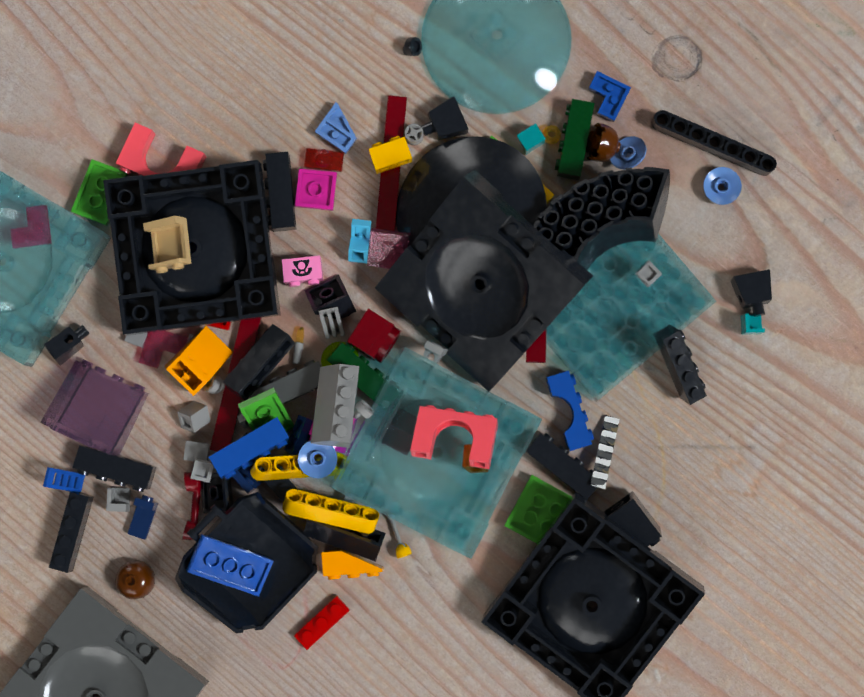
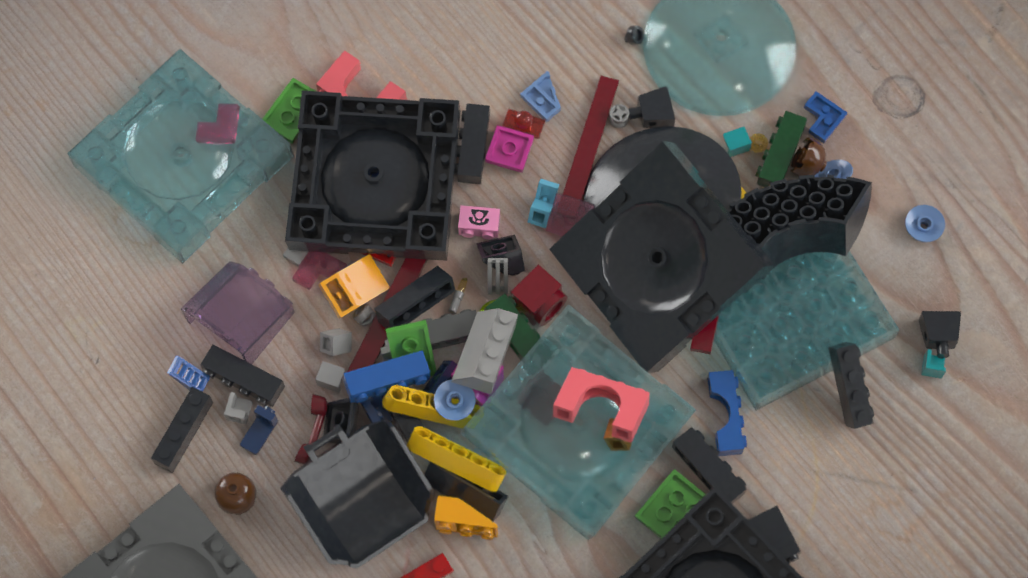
camera: 10 degrees right, 15 degrees down
(60, 349) = (223, 245): black torso -> none
(169, 243) = (352, 162): tan panel -> none
(202, 470) = (332, 392): light grey tile -> none
(229, 565) = (339, 492): blue tile -> none
(363, 410) = (513, 357): light grey tile -> none
(390, 154) = (591, 128): yellow brick -> none
(402, 549) = (522, 519): hinge -> none
(436, 349) = (598, 317): light grey tile -> none
(605, 452) = (756, 461): sticker -> none
(648, 273) = (833, 288): light grey tile -> none
(723, 142) = (927, 189): black beam -> none

